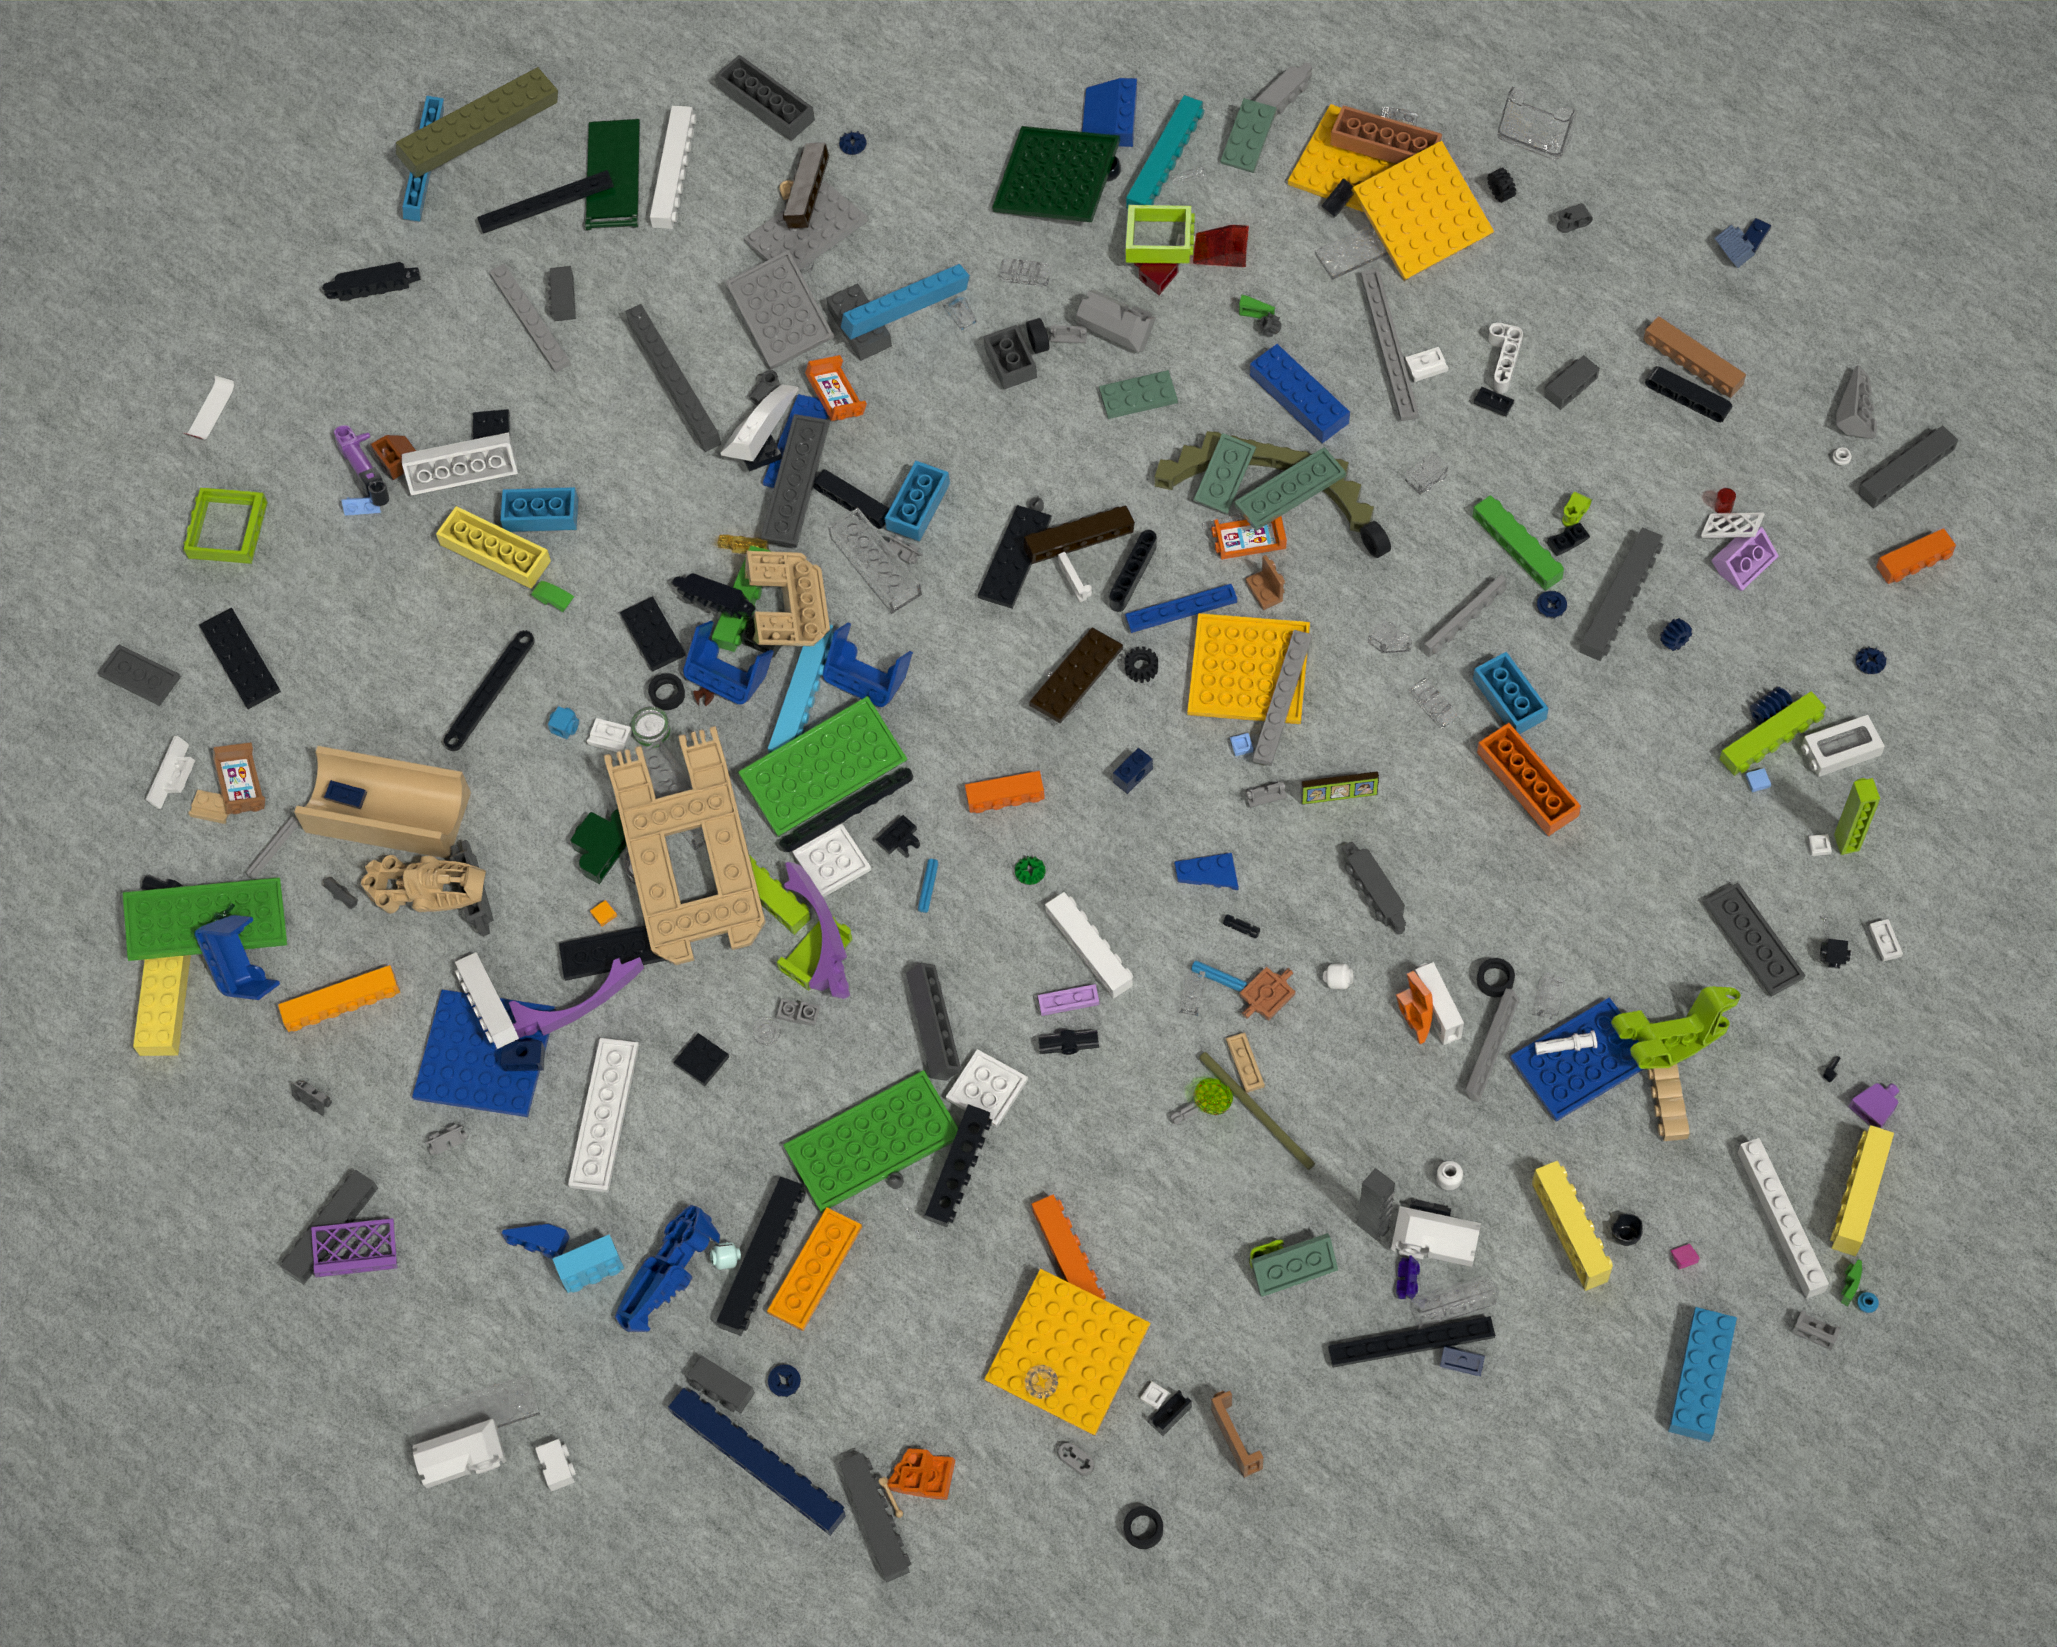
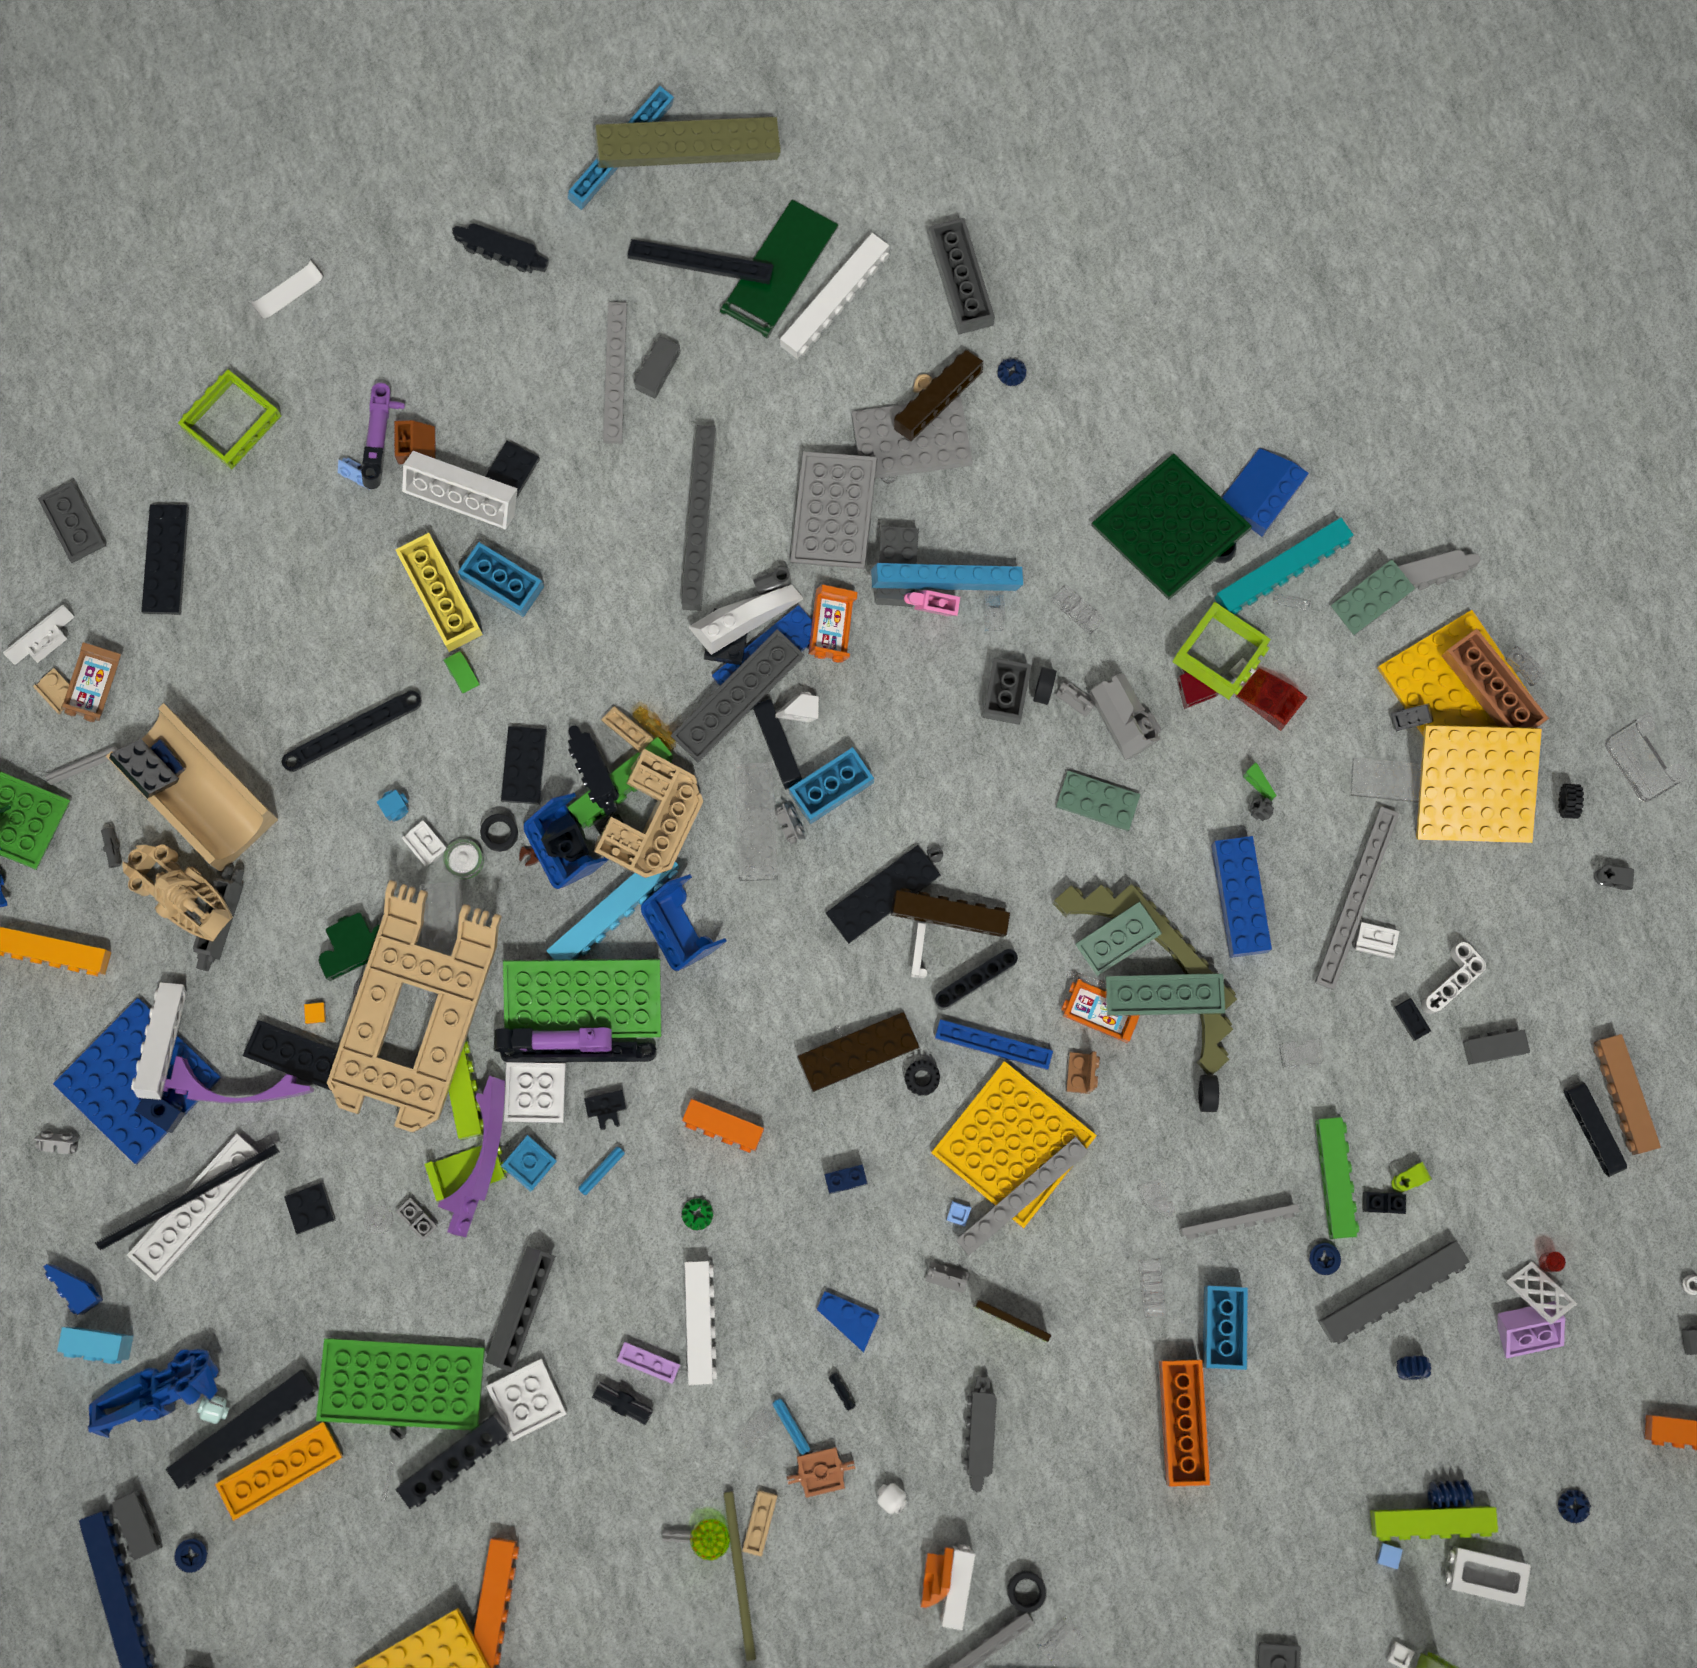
camera: 25 degrees right, 15 degrees up
(333, 803) = (144, 768): none -> black plate
(591, 1104) = (120, 1234): none -> black axle
(720, 556) = (627, 729): none -> tan tile
(727, 659) = (564, 839): none -> black slope
(797, 820) = (528, 1040): none -> medium lavender piece
(854, 461) = (800, 708): none -> white slope
(864, 912) = (528, 1163): none -> dark azure plate
(907, 327) = (933, 602): none -> bright pink brick

